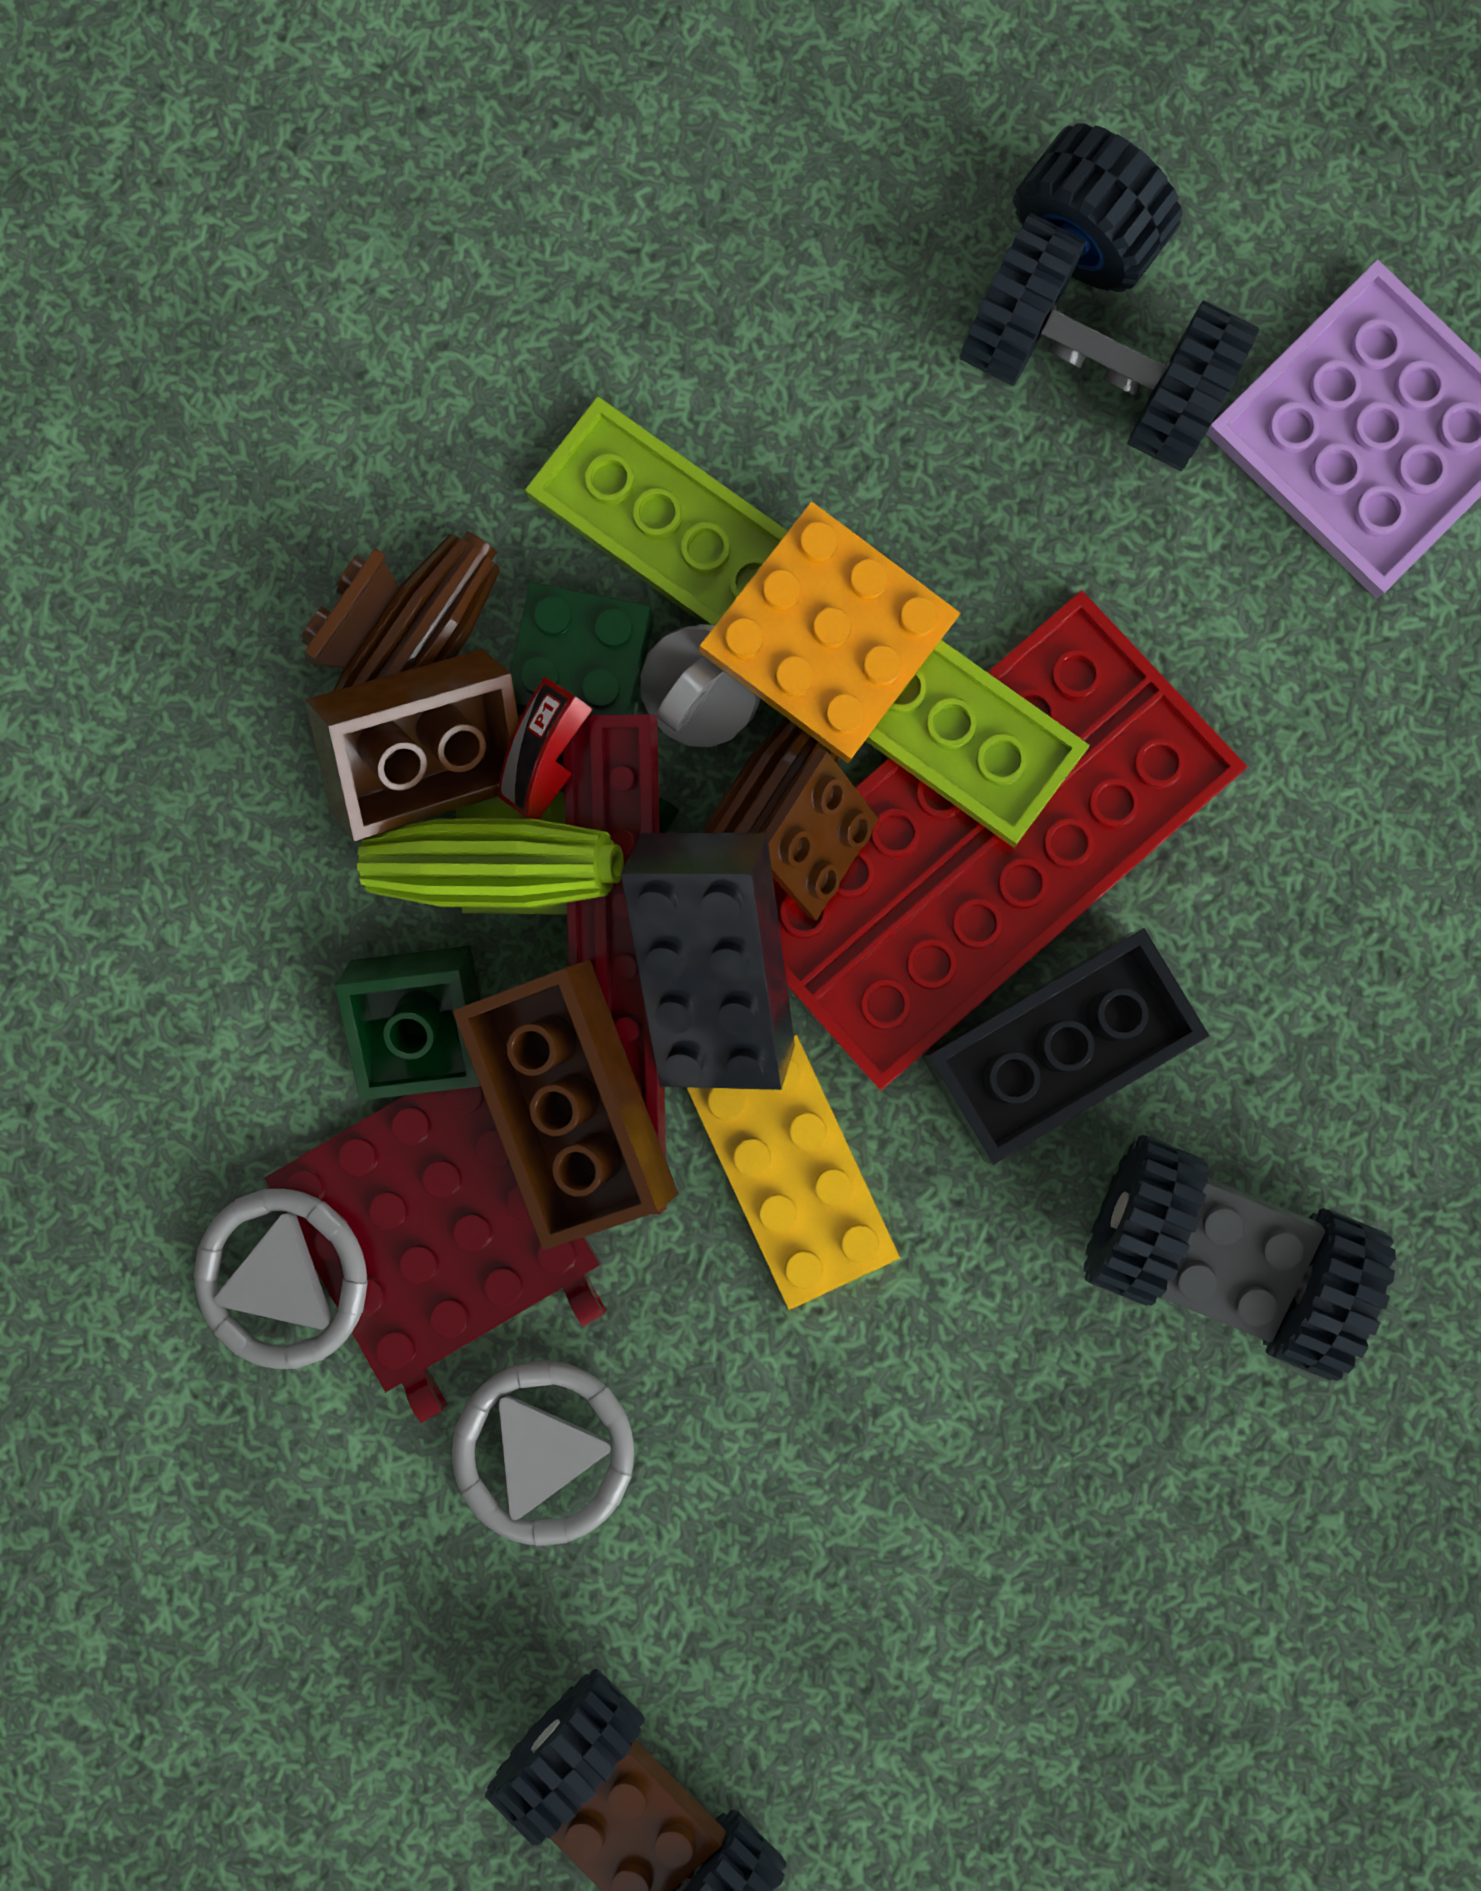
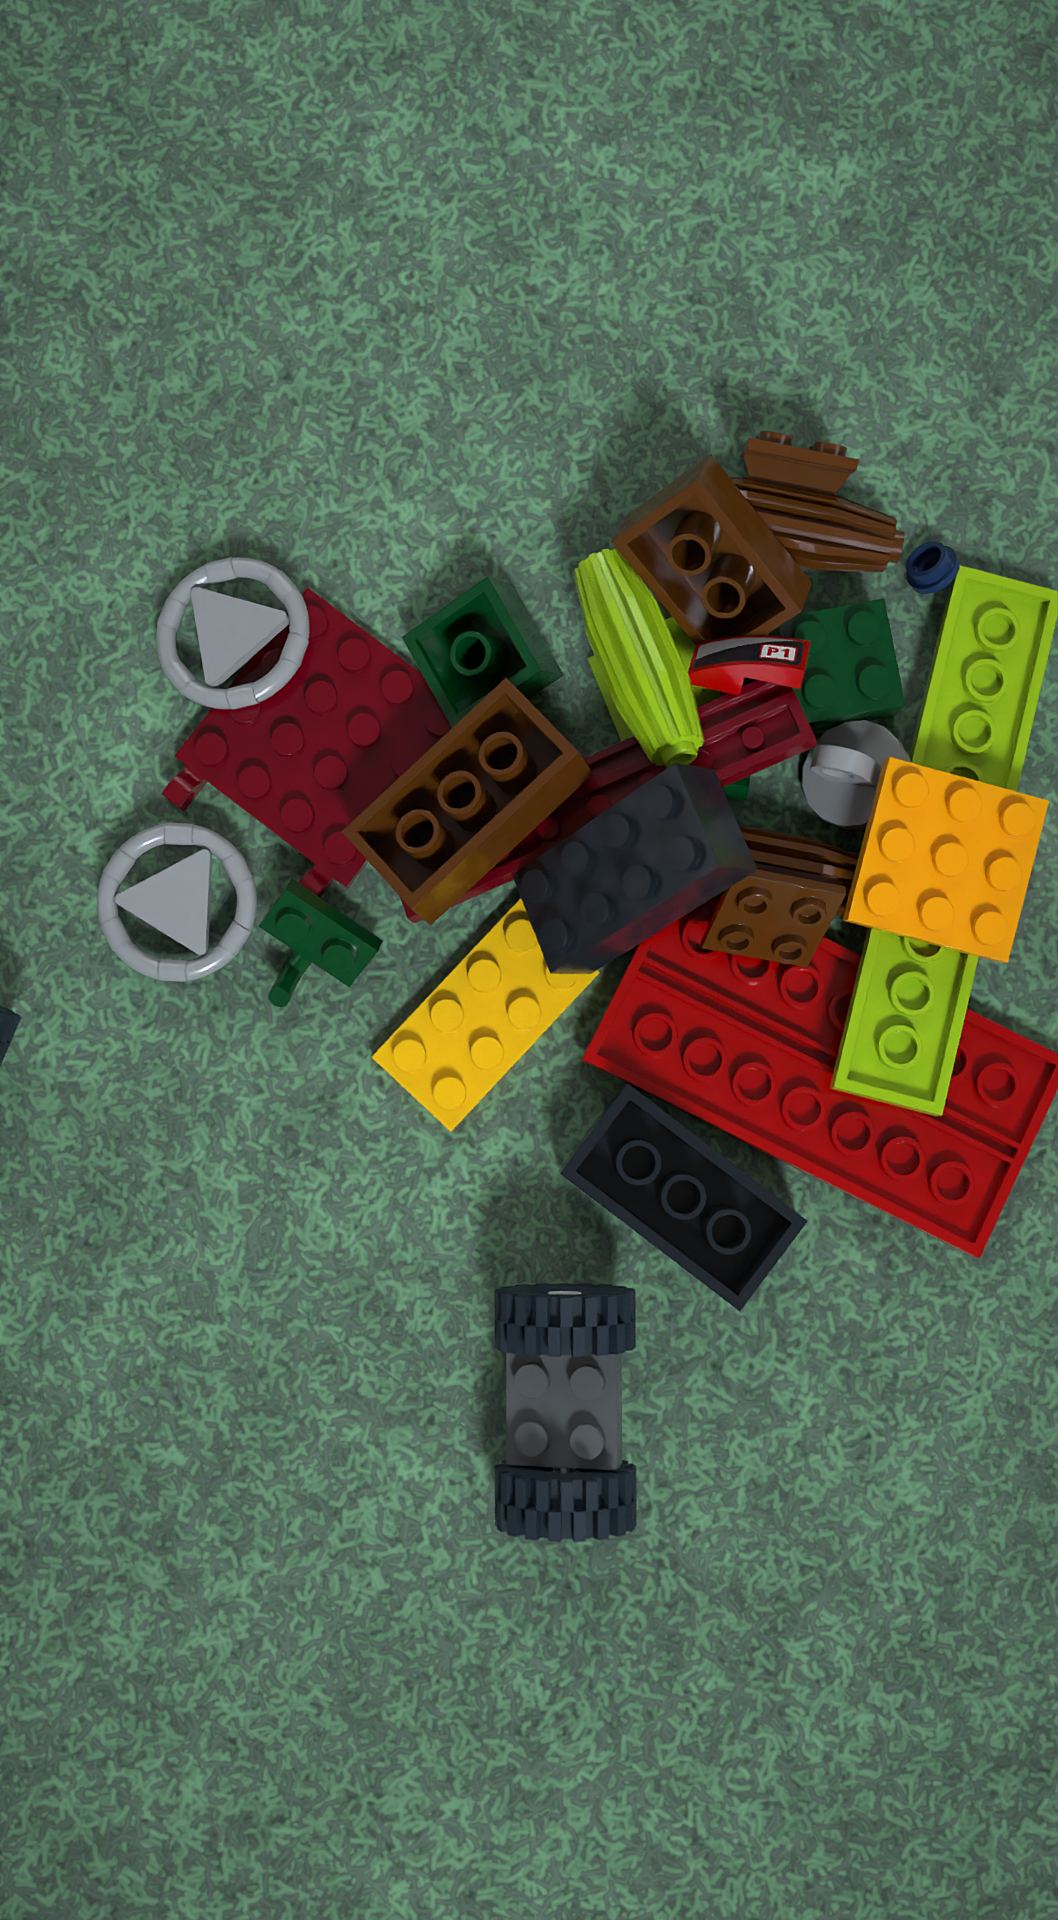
camera: 65 degrees right, 0 degrees up
(515, 518) = (931, 567): none -> dark blue plate
(639, 1316) = (317, 936): none -> dark green plate

